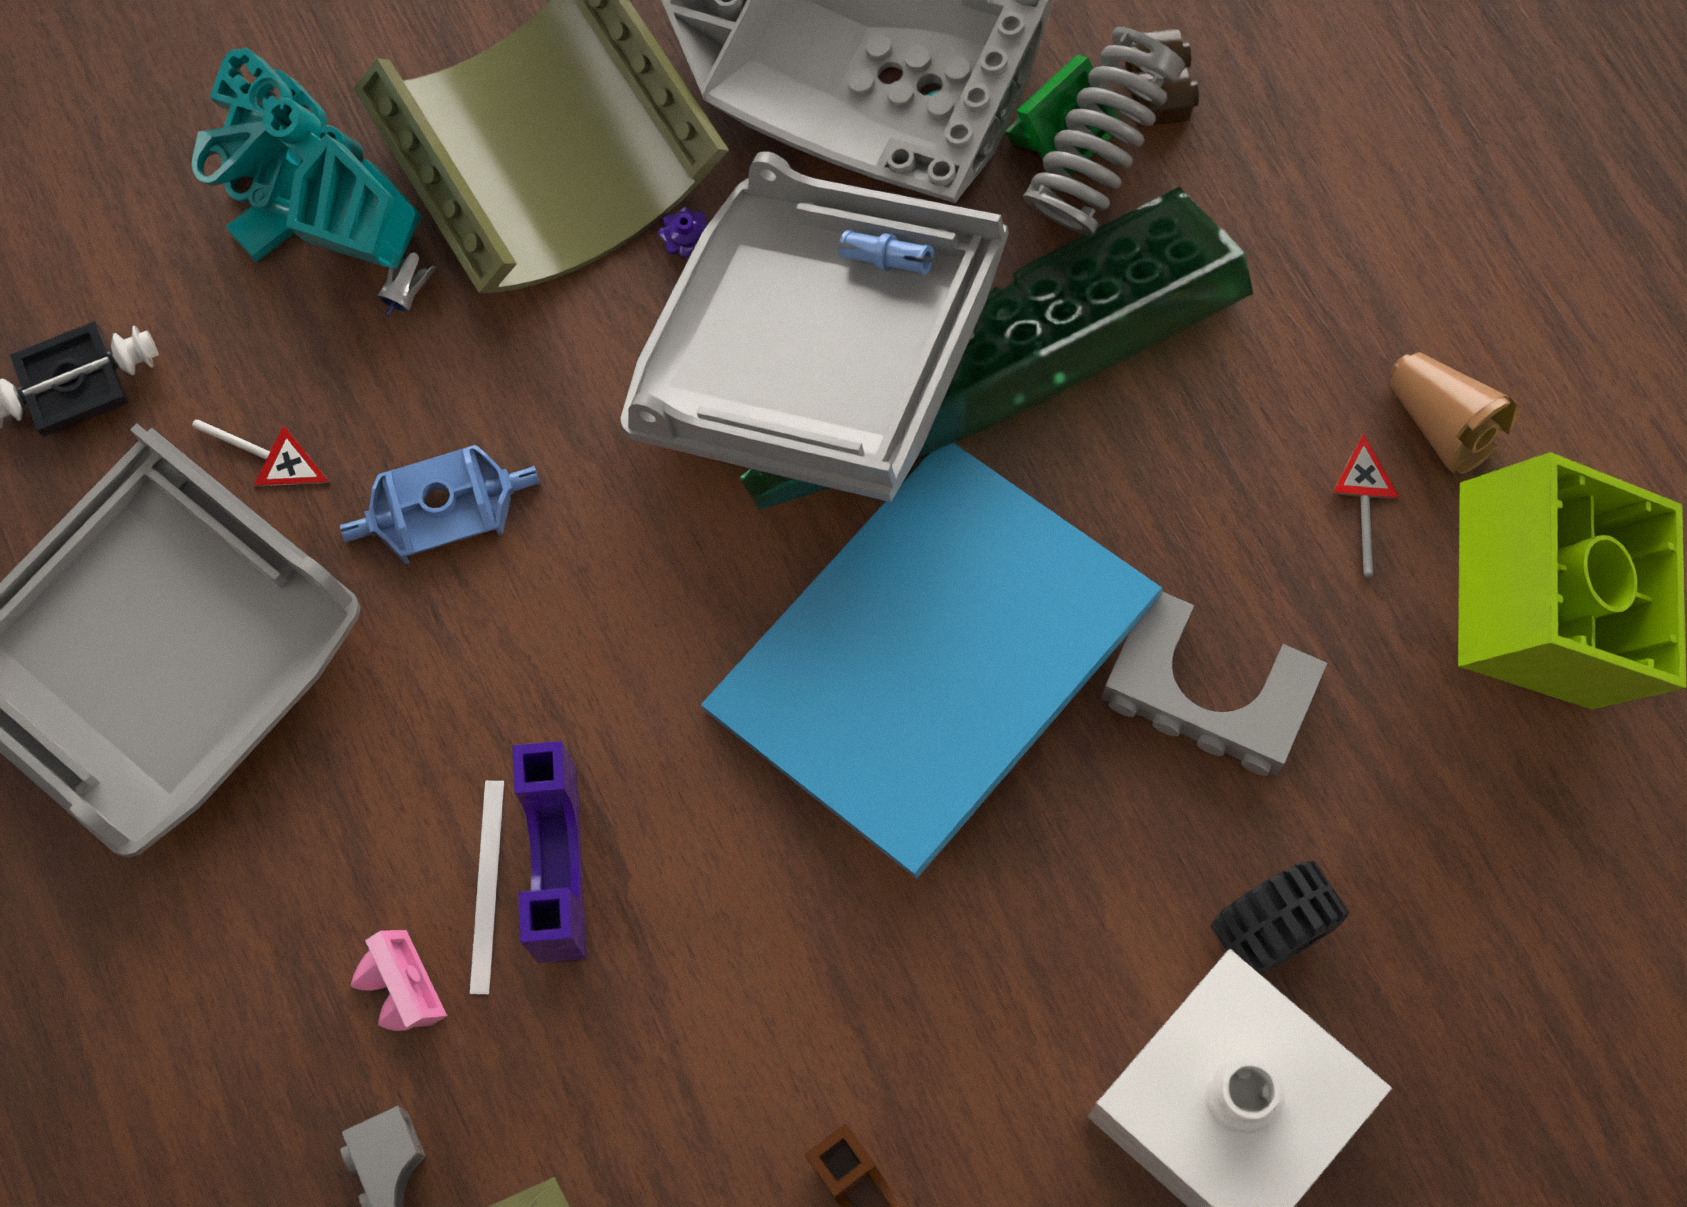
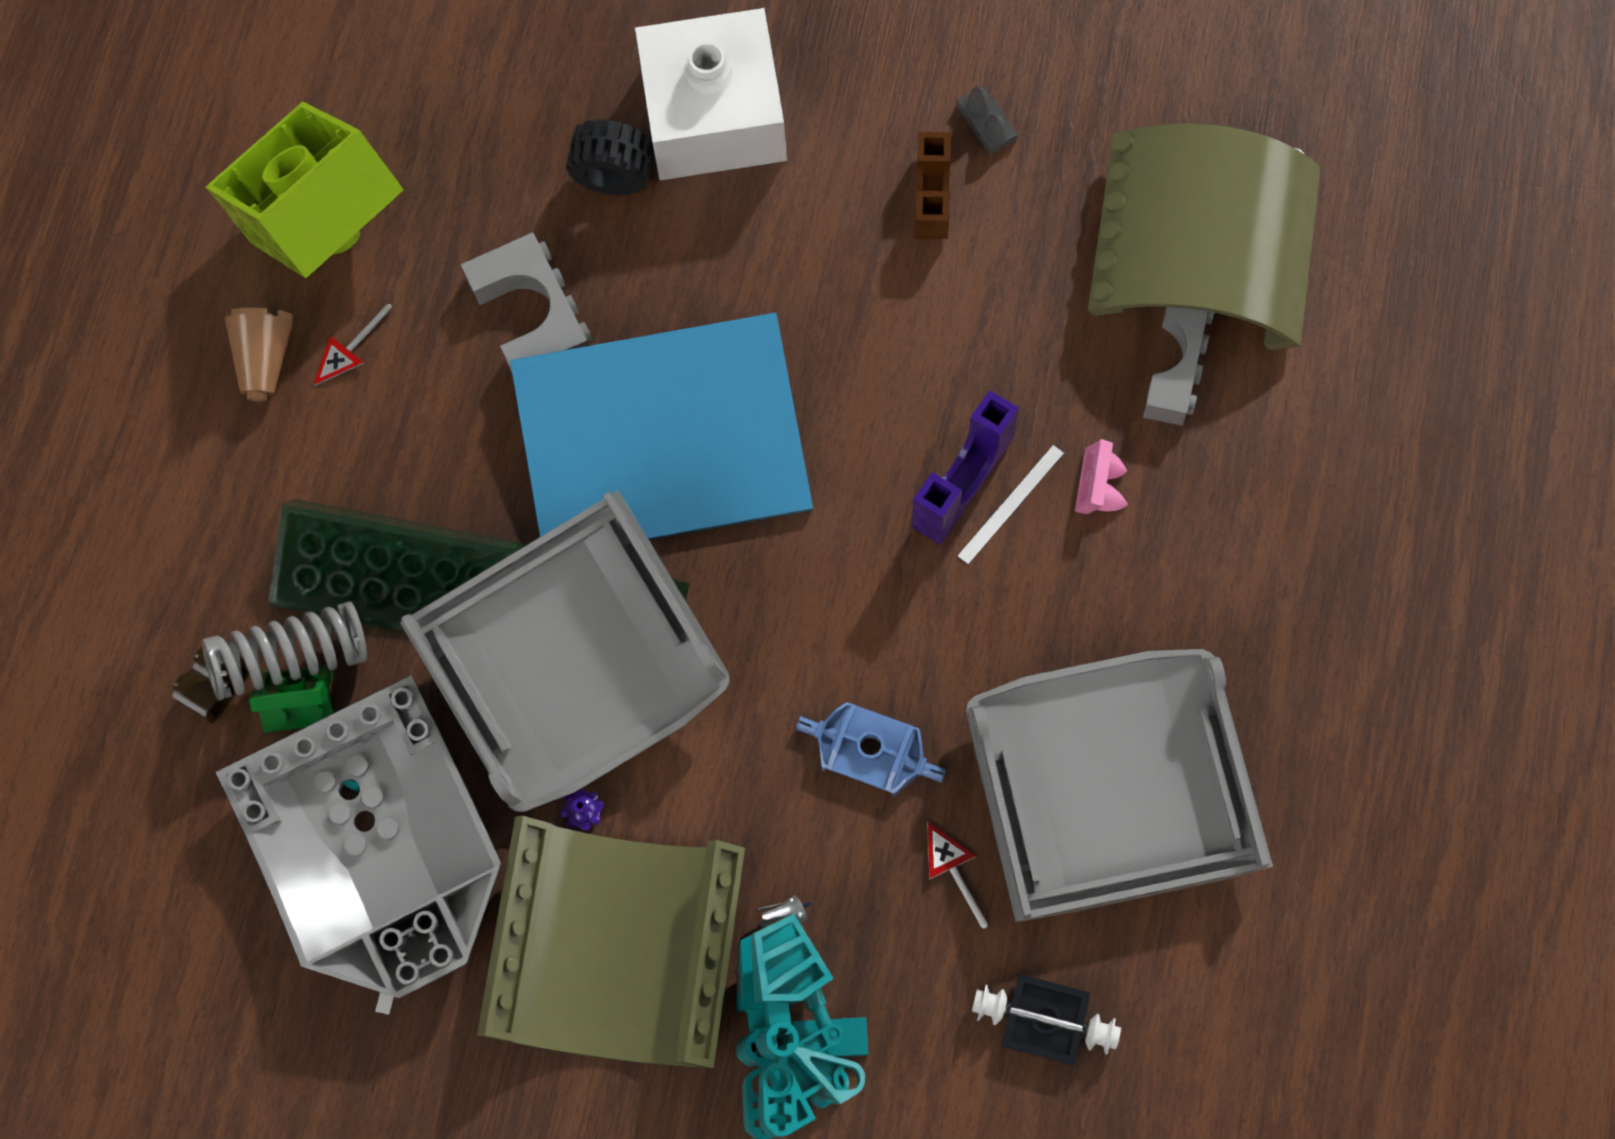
camera: 140 degrees left, 0 degrees up
(886, 252) = (482, 666): medium blue pin -> none

